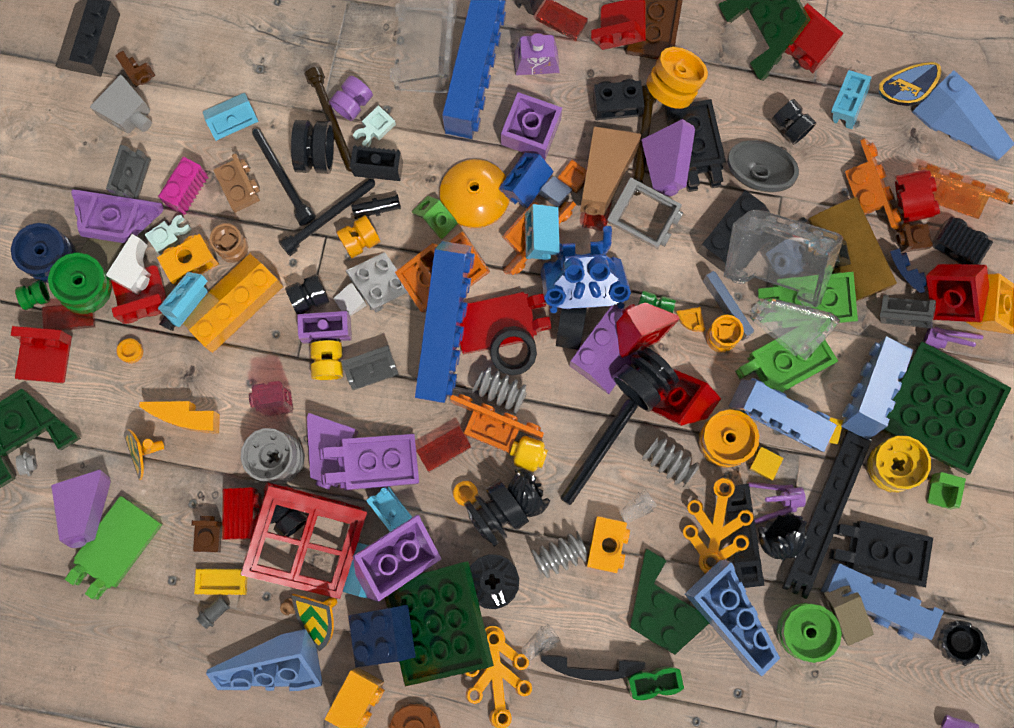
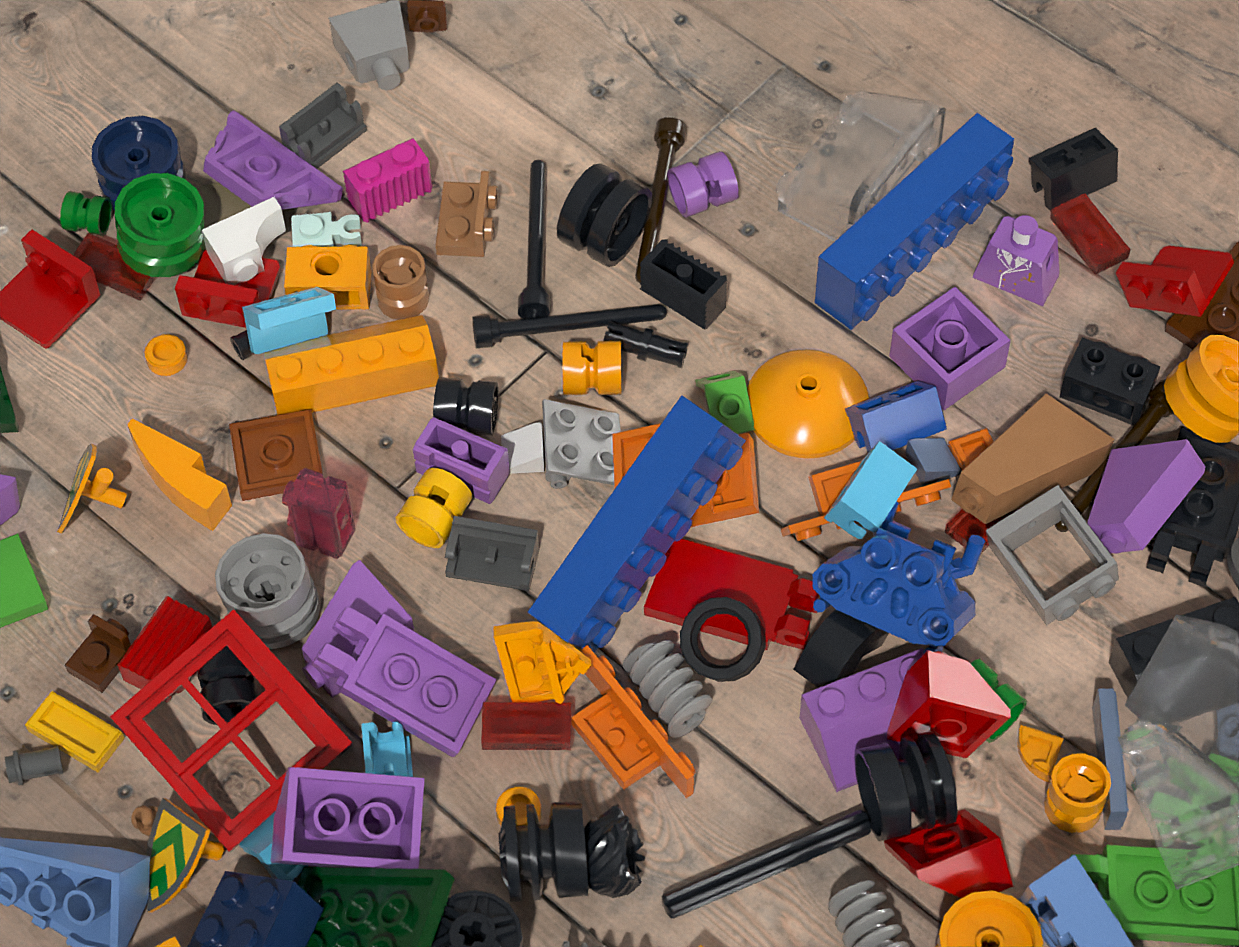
camera: 30 degrees right, 20 degrees down
(224, 374) = (273, 452): none -> dark orange tile
(230, 116) = (514, 128): medium azure panel -> none
(376, 124) = (716, 237): light aqua plate -> none
(432, 417) = (537, 662): none -> light orange slope
(529, 453) = (653, 801): yellow head -> none

